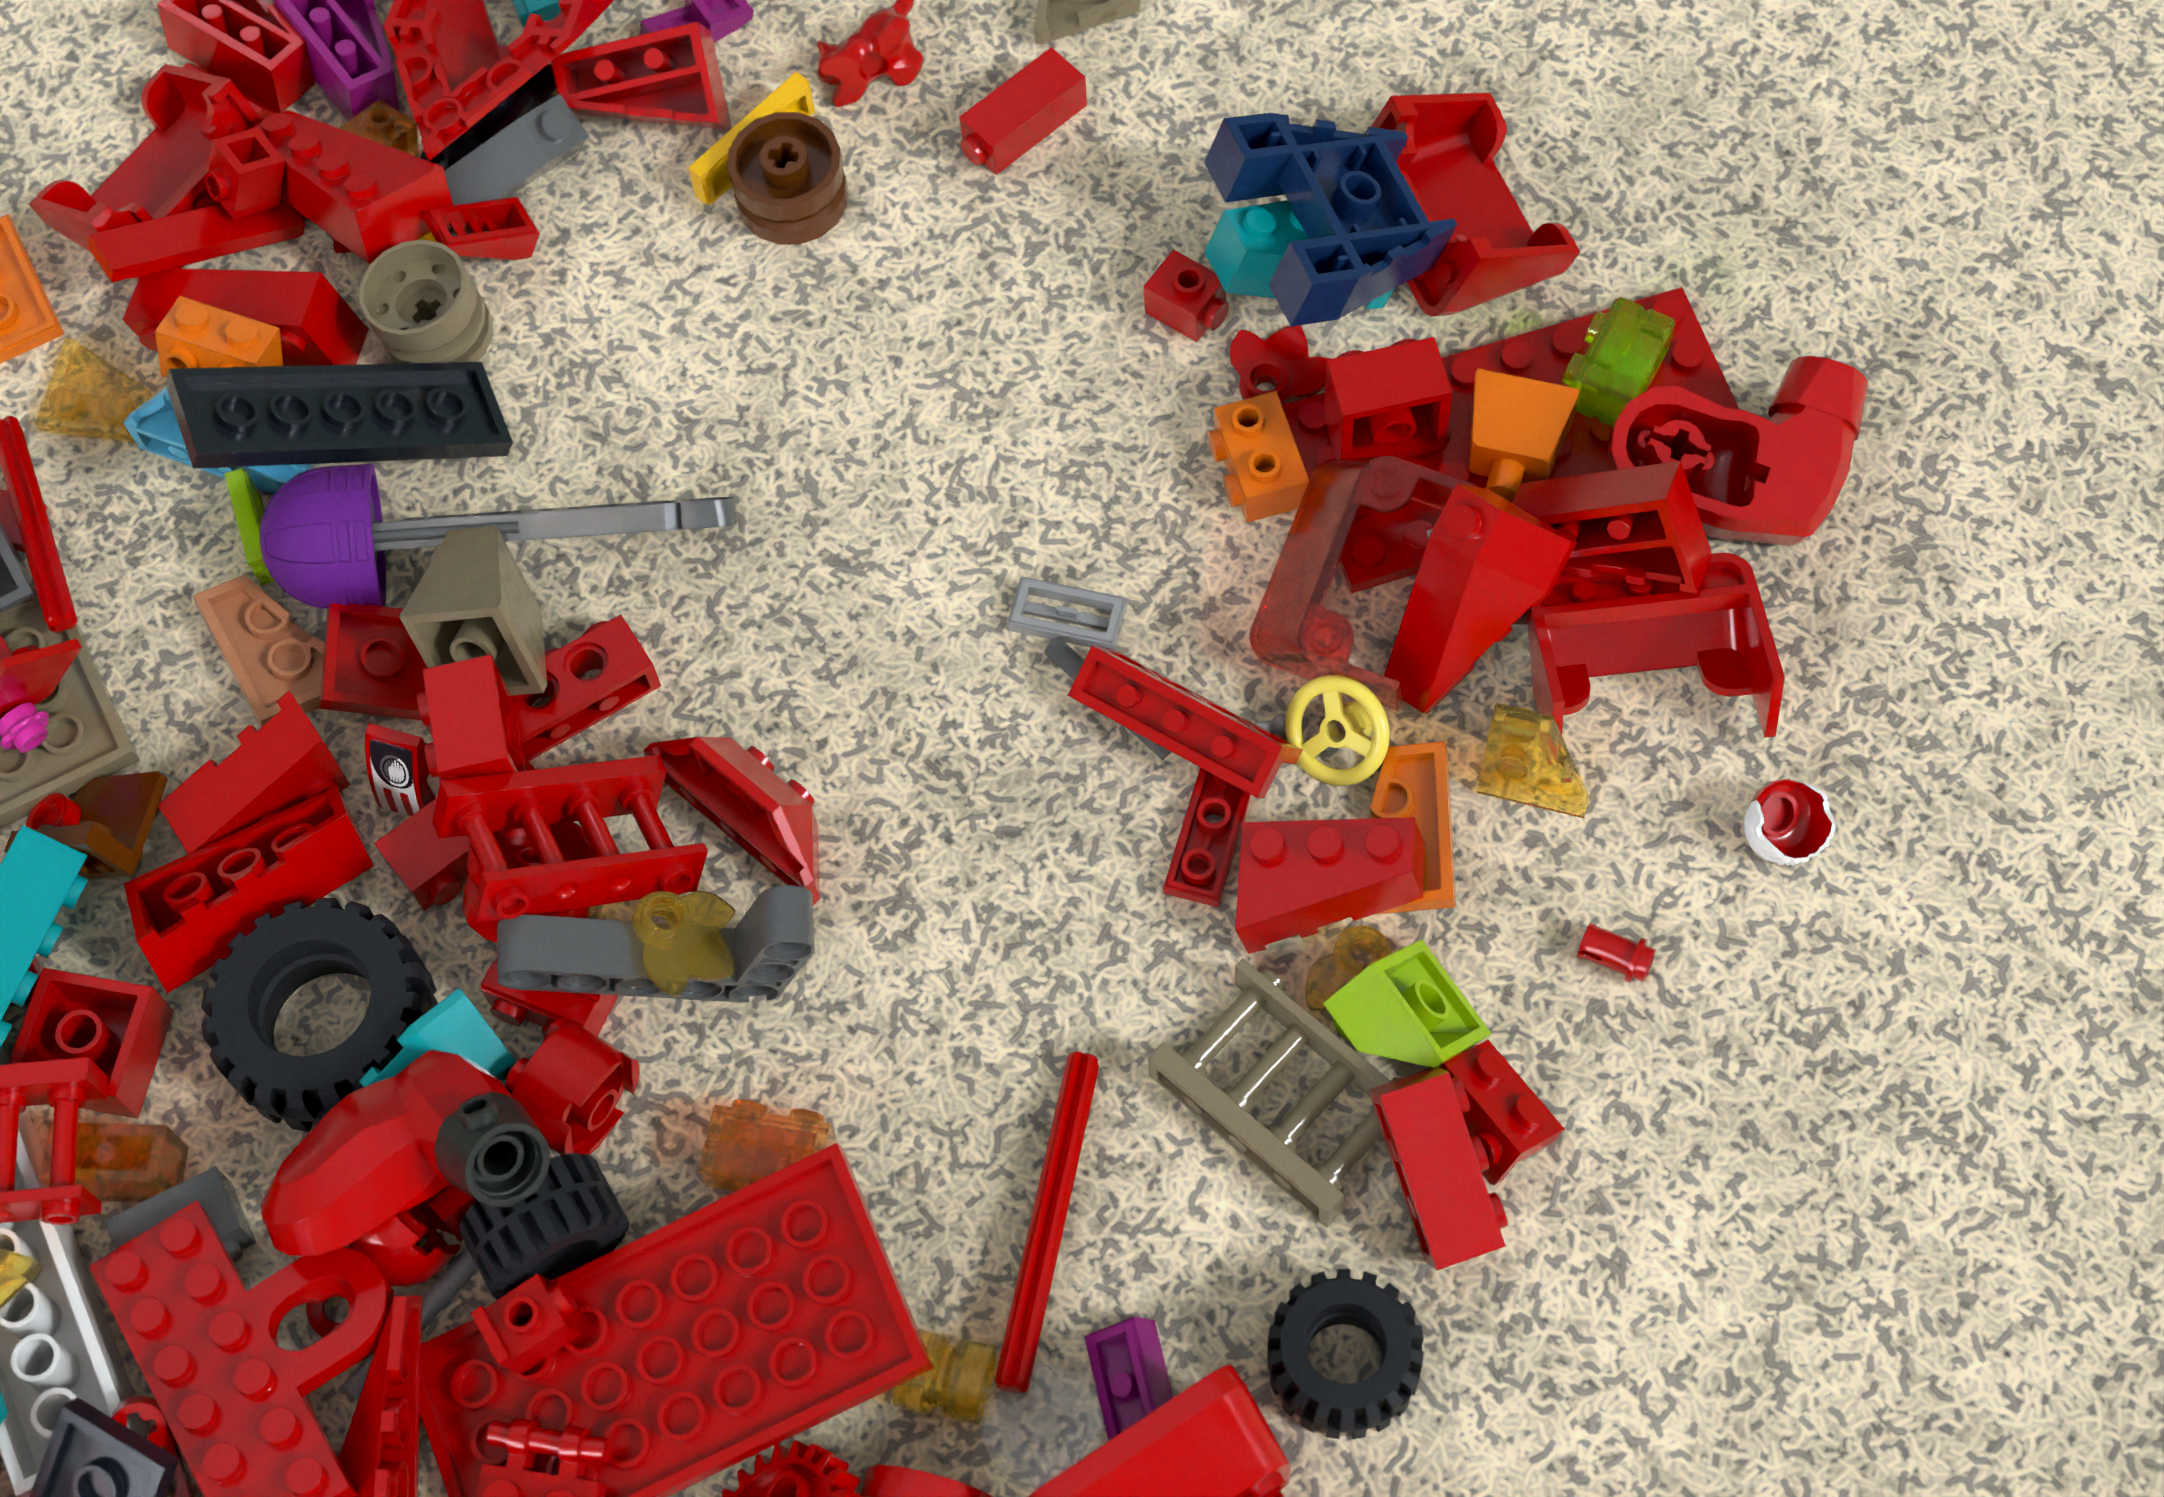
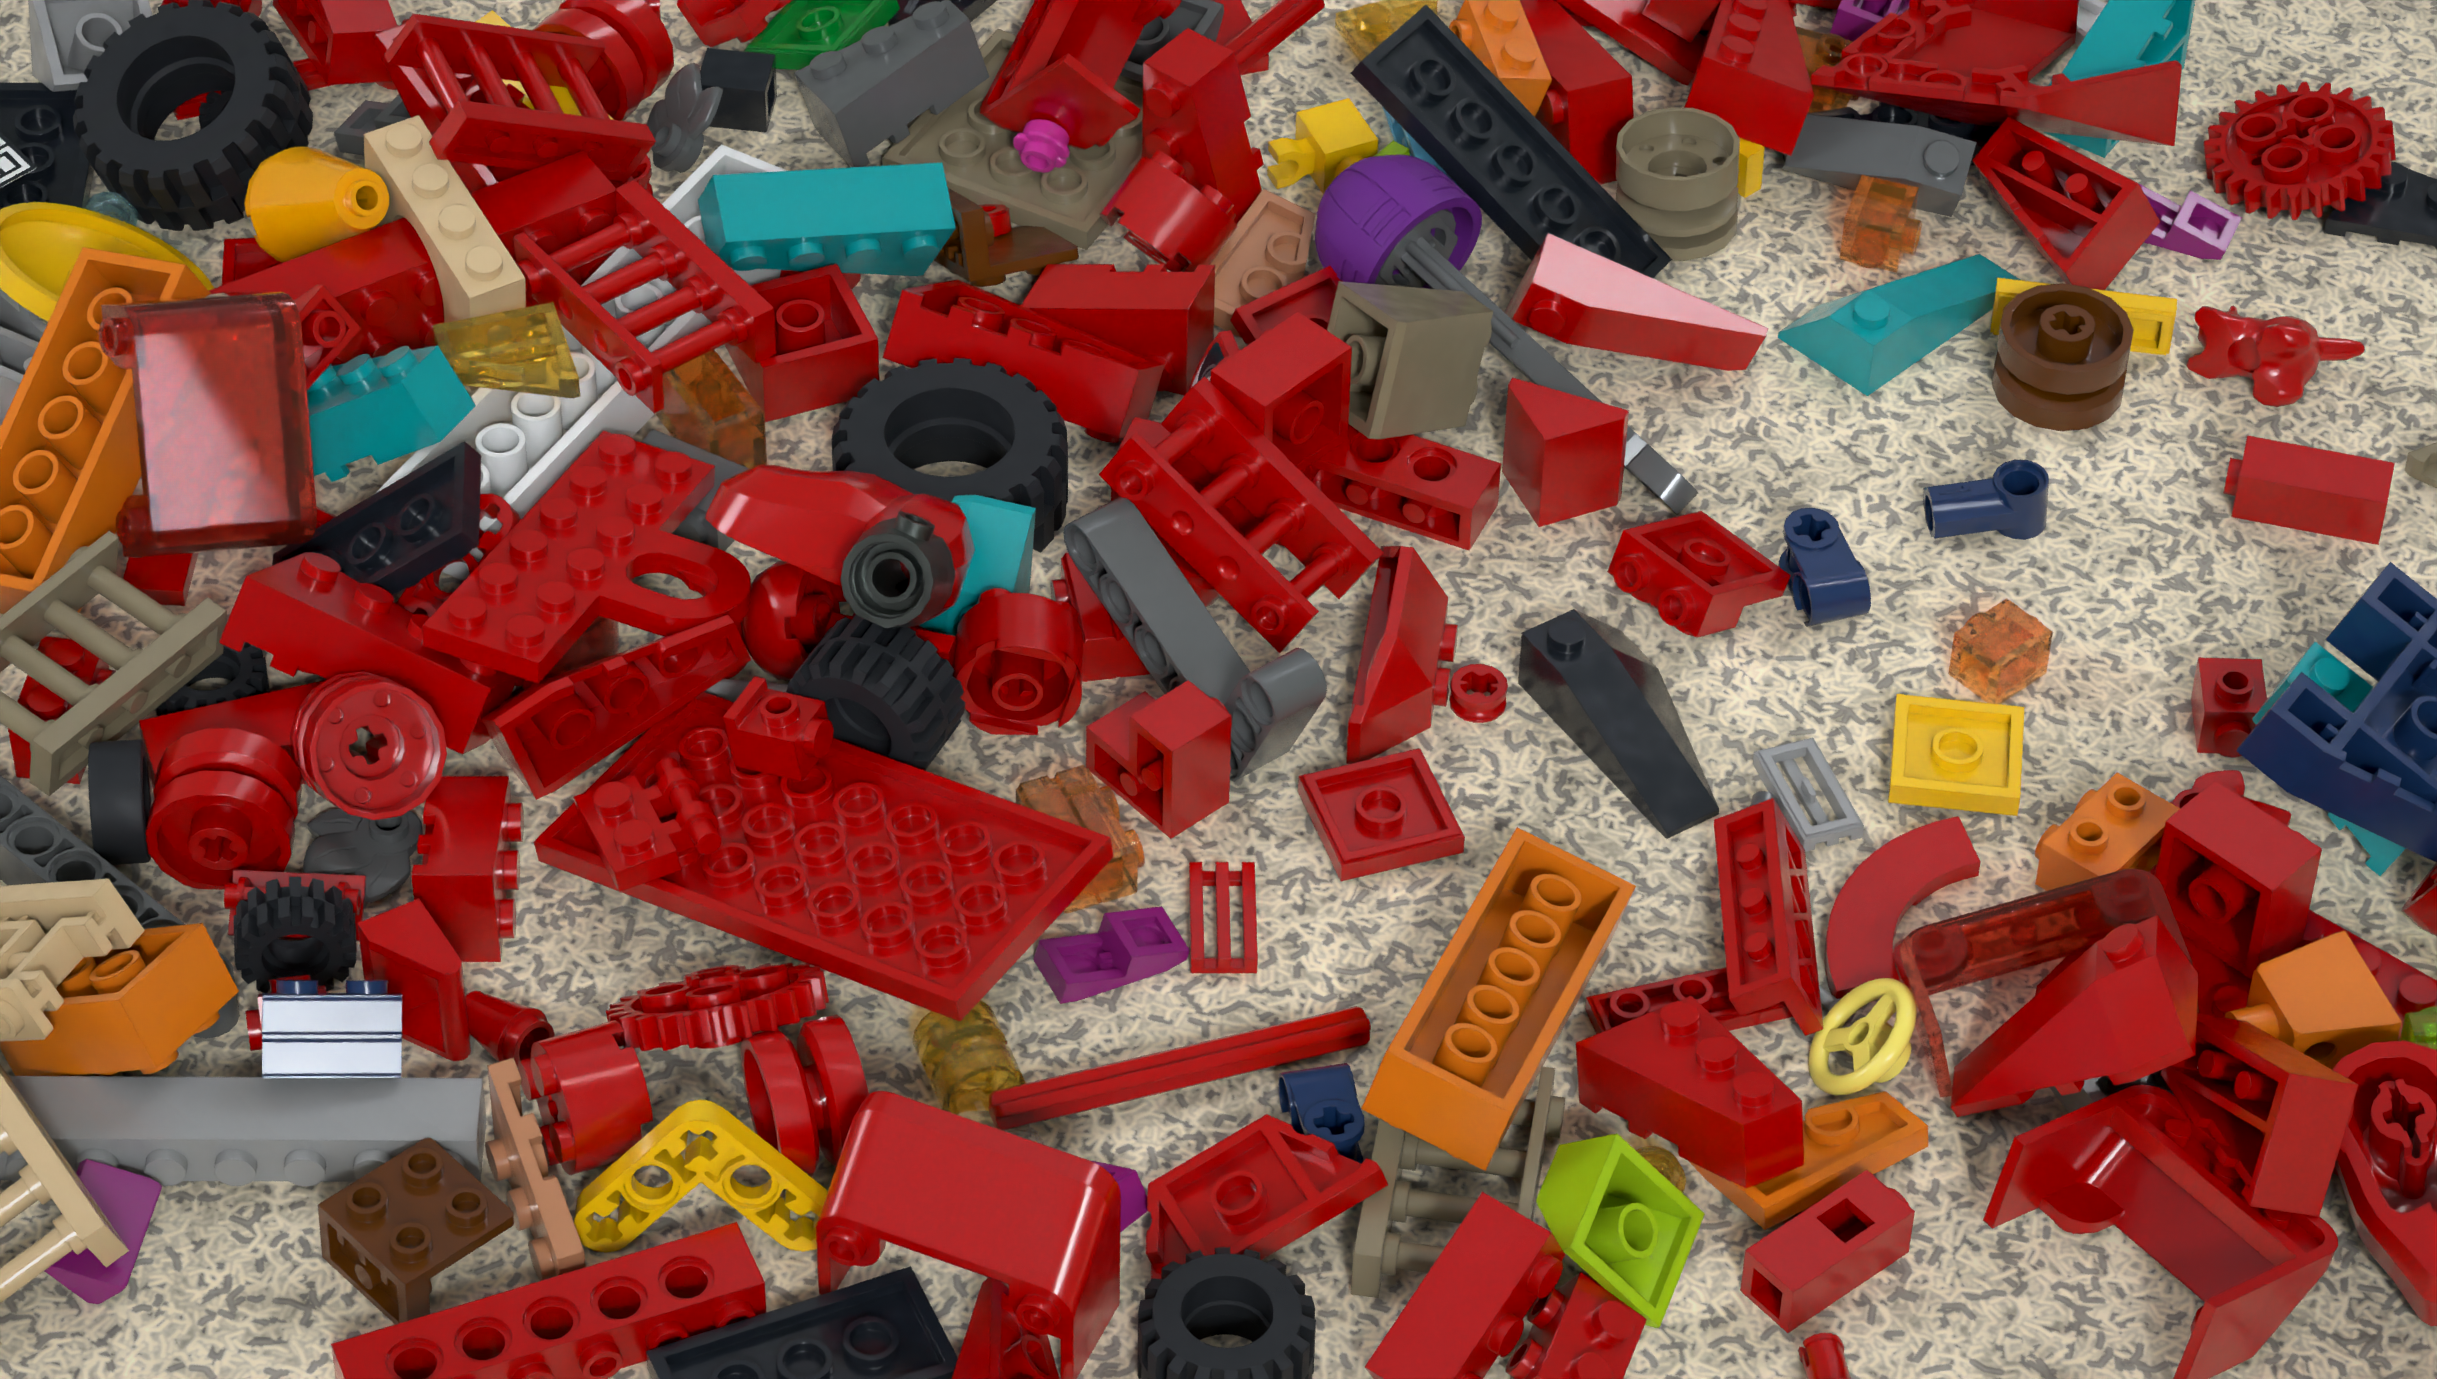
camera: 50 degrees right, 20 degrees down
(121, 612) = (1198, 117): none -> red wedge
(182, 518) = (1324, 145): none -> yellow brick
(185, 686) = (1170, 216): none -> red brick
(507, 224) = (1810, 190): red slope -> none
(514, 447) = (1620, 310): none -> red wedge
(561, 205) = (1881, 224): none -> clear orange brick
(638, 567) = (1562, 452): none -> red slope
(652, 260) = (1896, 324): none -> teal wedge
(691, 943) = (1212, 652): clear yellow plate -> none
(737, 1044) = (1165, 755): none -> red brick
(812, 550) = (1694, 572): none -> red plate
(830, 779) = (1477, 706): none -> red bush
(869, 1067) = (1222, 879): none -> red tile
(873, 468) = (1822, 568): none -> dark blue piece
(884, 319) = (2009, 502): none -> dark blue piece
(890, 917) = (1380, 814): none -> red plate
(895, 1190) = (1123, 951): none -> magenta slope
(899, 689) = (1618, 715): none -> black wedge
(1031, 403) = (2000, 652): none -> clear orange brick
(1104, 494) = (1956, 754): none -> yellow plate
(1159, 1144) = (1325, 1105): none -> dark blue piece
(1169, 958) = (1498, 999): none -> orange brick
(1201, 637) = (1882, 892): none -> red tile
(1218, 1259) = (1253, 1193): none -> red wing
(1509, 879) = (1827, 1250): none -> red brick
(1531, 763) = (1960, 1196): clear yellow wing -> none

